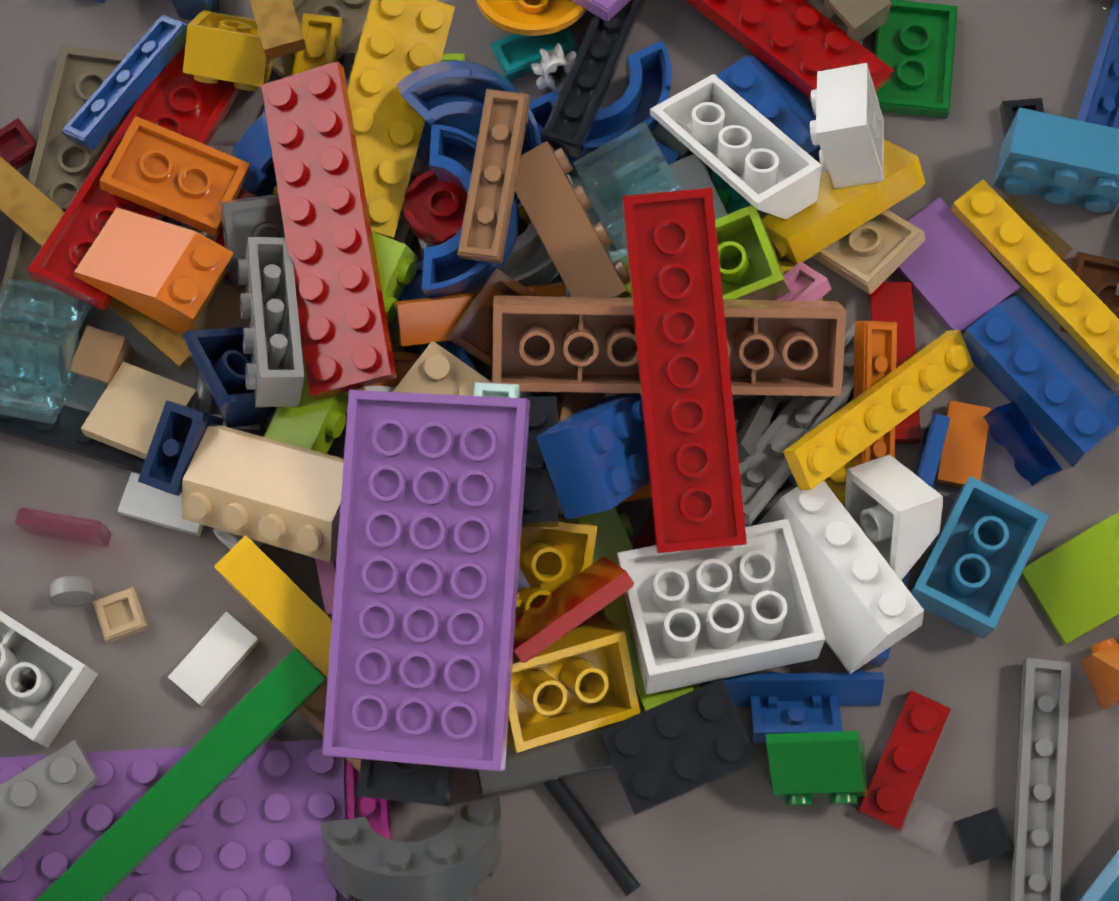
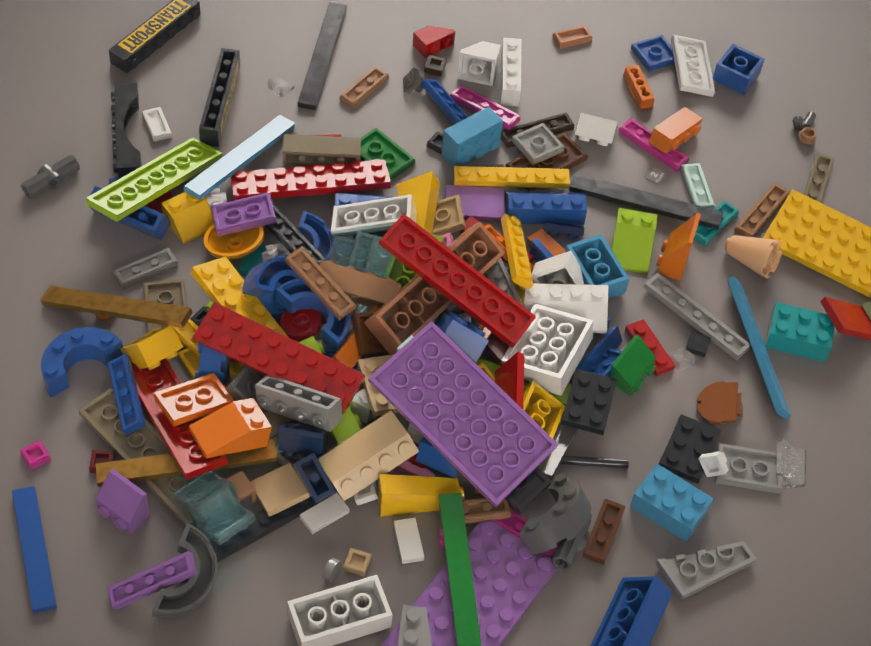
camera: 60 degrees left, 20 degrees down
(63, 527) = (301, 554): clear pink tile -> none
(848, 126) = (401, 177): white brick -> none

